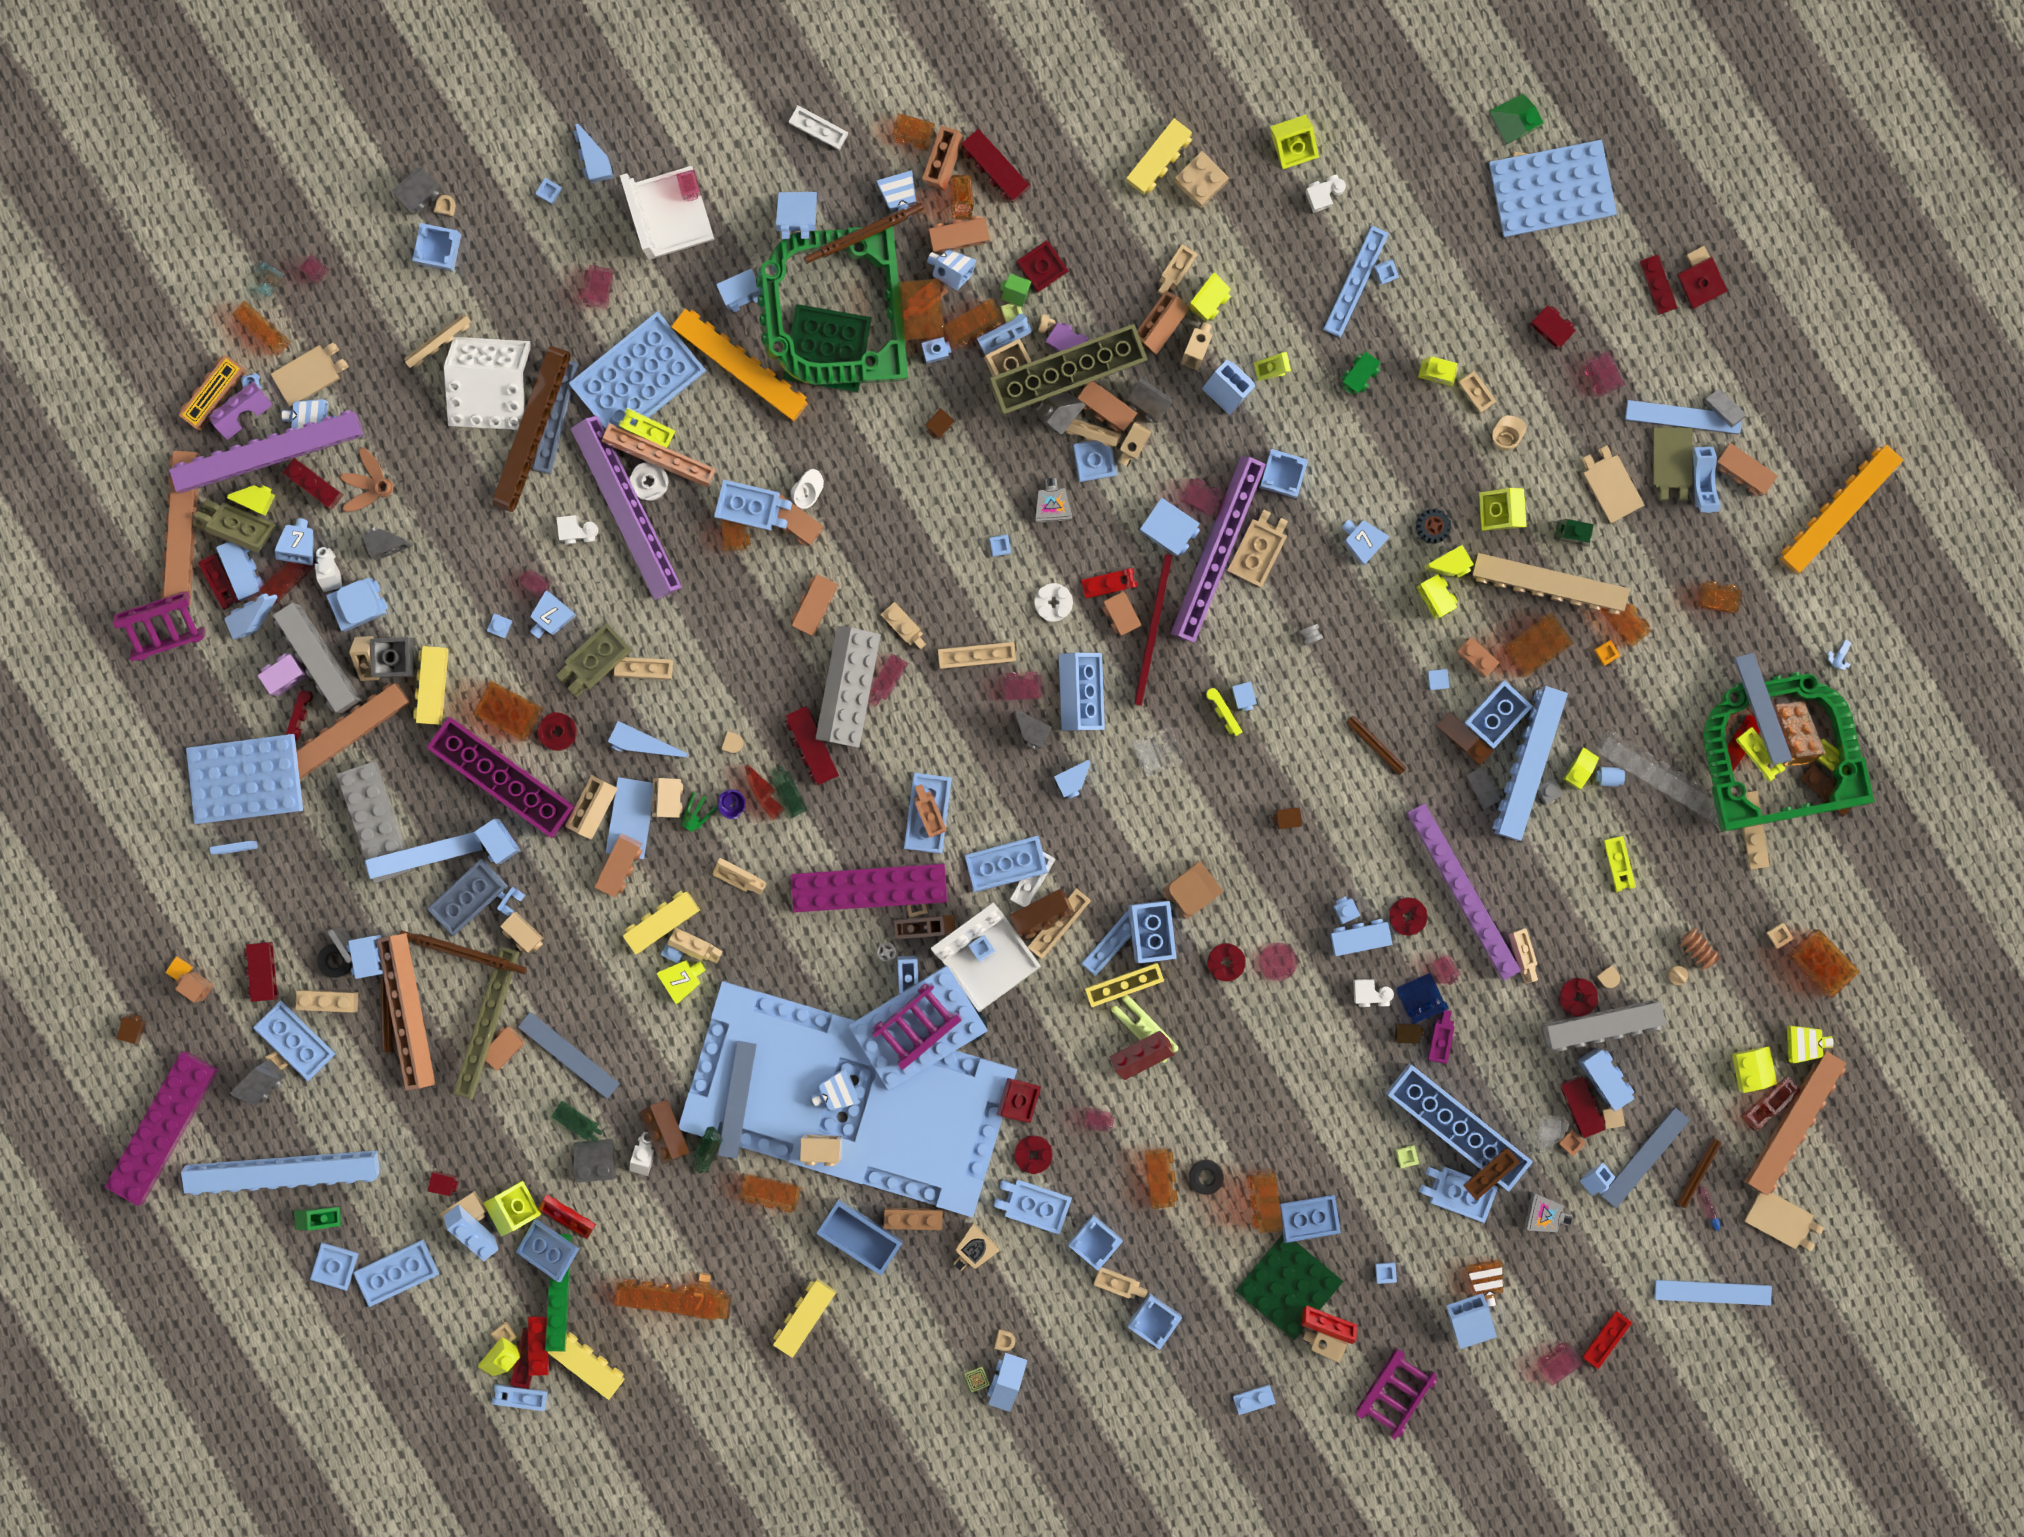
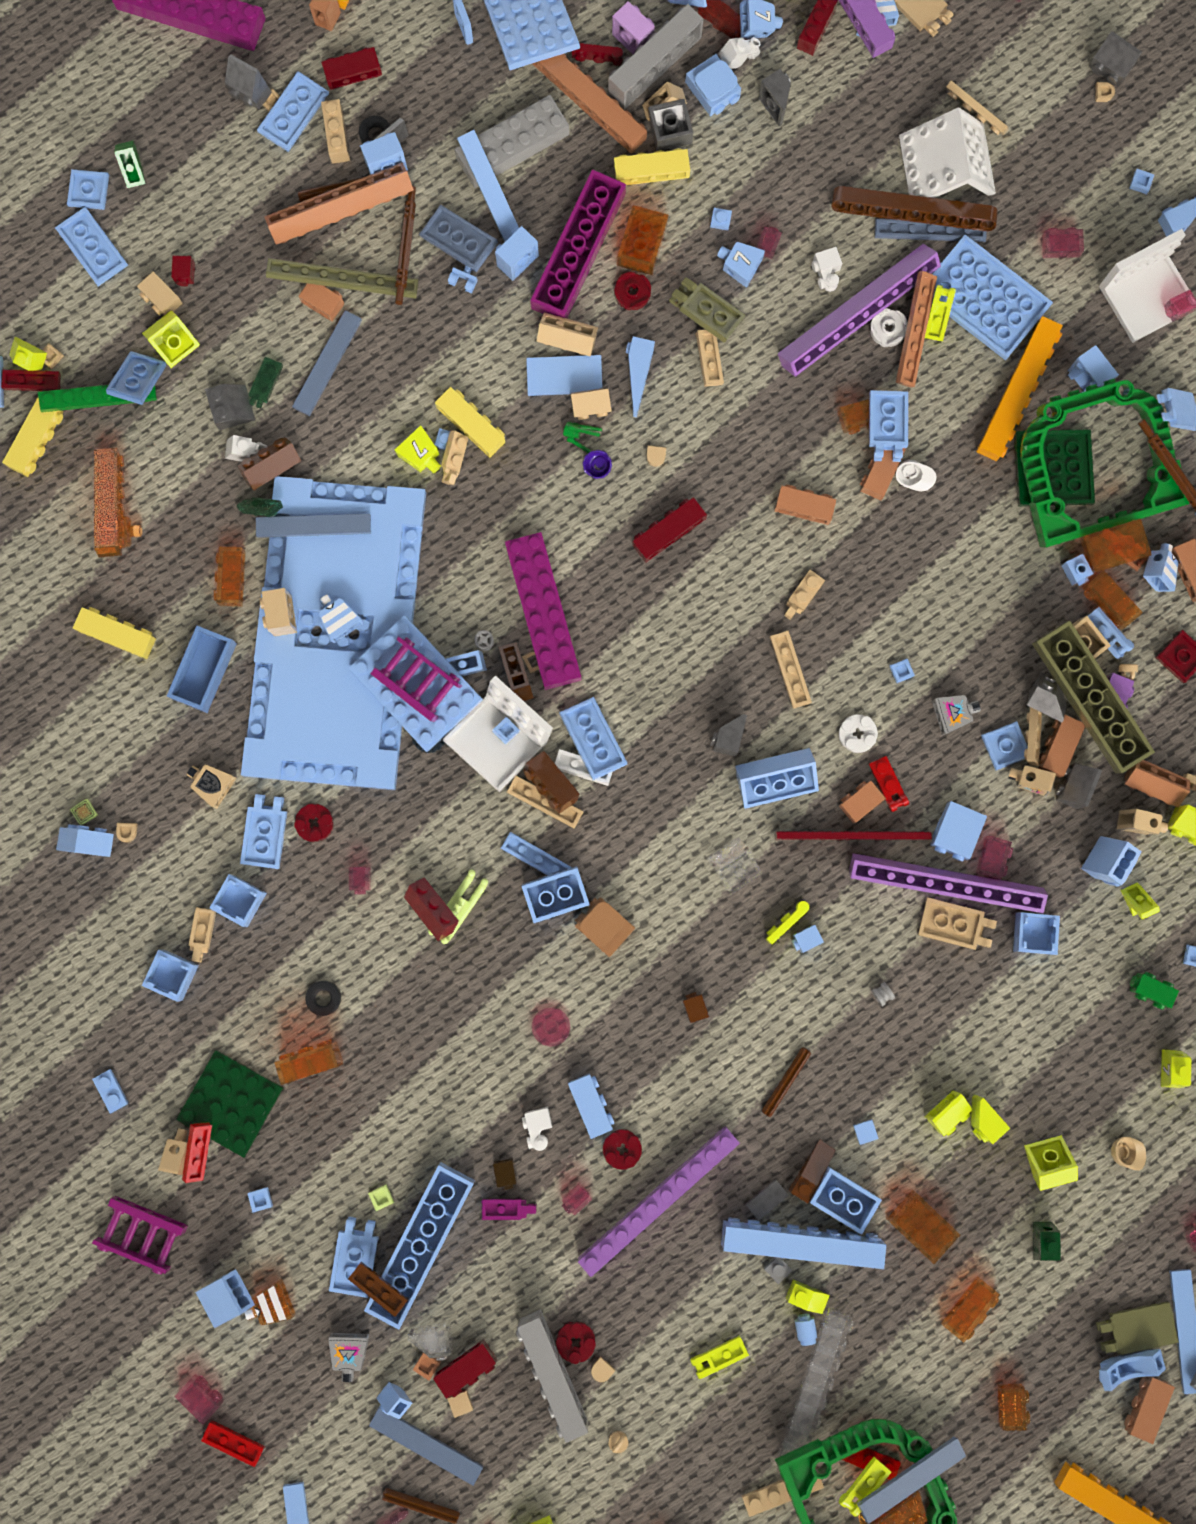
camera: 75 degrees right, 5 degrees down
(280, 1172) = (167, 122): light blue brick -> none
(373, 485) = (827, 83): nougat plant -> none
(436, 247) = (1064, 89): light blue container -> none
(470, 1232) = (139, 301): light blue brick -> none
(523, 933) = (434, 296): tan brick -> none
(537, 1356) = (28, 390): red plate -> none
(567, 1216) = (172, 391): red plate -> none
(619, 865) = (516, 370): nougat brick -> none
(738, 877) = (528, 486): tan hinge -> none
(763, 792) = (614, 493): clear red slope -> none
(789, 793) = (619, 518): clear green hinge -> none
(848, 686) = (734, 550): light grey brick -> none
(888, 678) = (749, 589): clear pink hinge -> none
(913, 1218) = (229, 718): medium nougat brick -> none
(916, 834) = (627, 653): light blue tile -> none
(929, 812) = (628, 653): nougat hinge -> none
(939, 424) = (1006, 588): reddish brown brick -> none
(1010, 311) = (1133, 634): yellowish green tile -> none
(1015, 289) = (1154, 634): bright green brick -> none
(1018, 1100) = (364, 797): dark red plate -> none
(1022, 687) = (769, 719): clear pink brick -> none
(1072, 779) = (689, 786): light blue slope -> none
(1124, 984) = (497, 877): light yellow brick -> none
(1161, 1178) = (313, 953): clear orange brick -> none
(1235, 968) = (545, 965): dark red plate -> none
(1309, 1218) = (300, 1110): medium blue tile -> none
(1346, 909) = (616, 1084): light blue brick -> none
(1363, 539) = (989, 1027): light blue torso -> none
(1421, 998) = (542, 1180): clear blue bracket -> none
(1439, 523) = (1022, 1101): black wheel -> none
(1477, 392) = (1162, 1112): tan plate -> none
(1477, 657) = (897, 1167): nougat brick -> none
(1524, 955) = (607, 1277): tan hinge -> none
(1551, 583) = (989, 1229): tan brick -> none
(1606, 1078) = (498, 1389): light blue brick -> none
(1607, 652) = (930, 1300): light orange tile -> none
(1611, 485) = (1100, 1270): tan tile -> none
(1699, 949) = (649, 1460): nougat piece -> none

